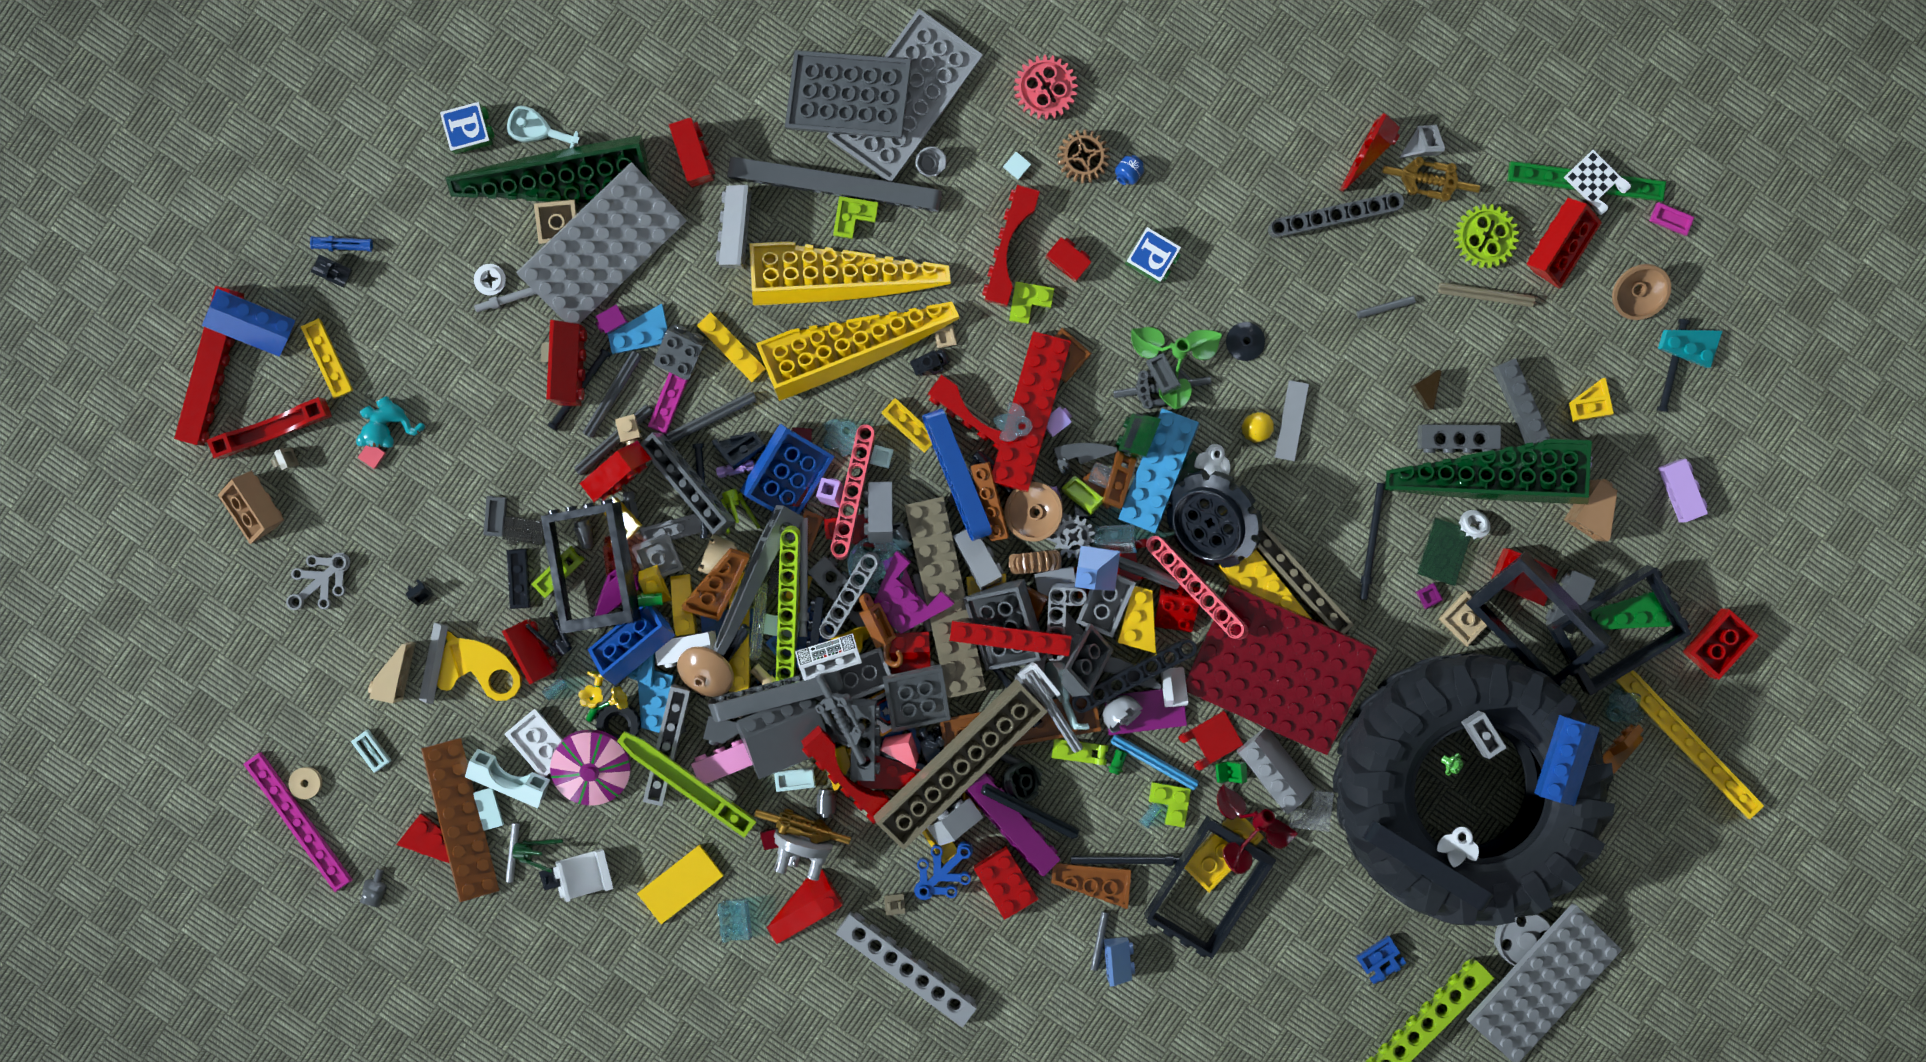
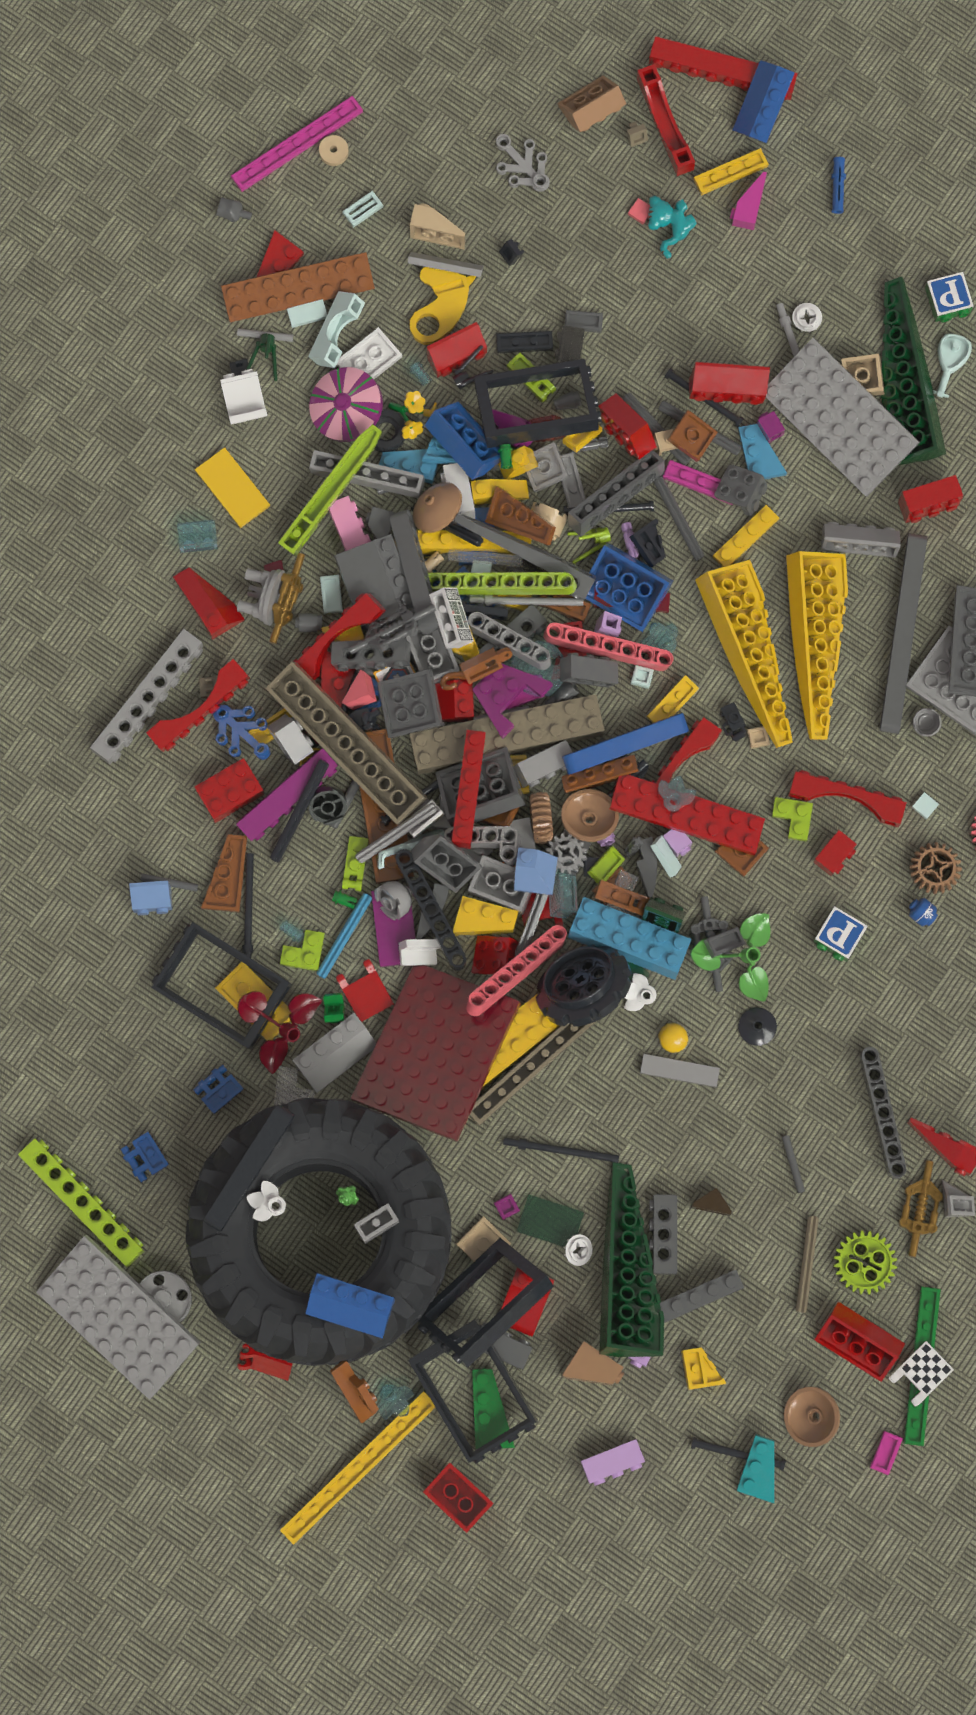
camera: 85 degrees right, 10 degrees down
(331, 271) = (812, 176): black hips -> none
(368, 341) = (748, 205): none -> dark pink slope
(623, 402) = (692, 435): none -> dark orange tile
(851, 210) = (877, 646): lime plate -> none
(890, 886) = (167, 732): none -> red arch
(1073, 433) = (666, 856): none -> light aqua tile
(1317, 883) = (222, 1093): none -> blue plate

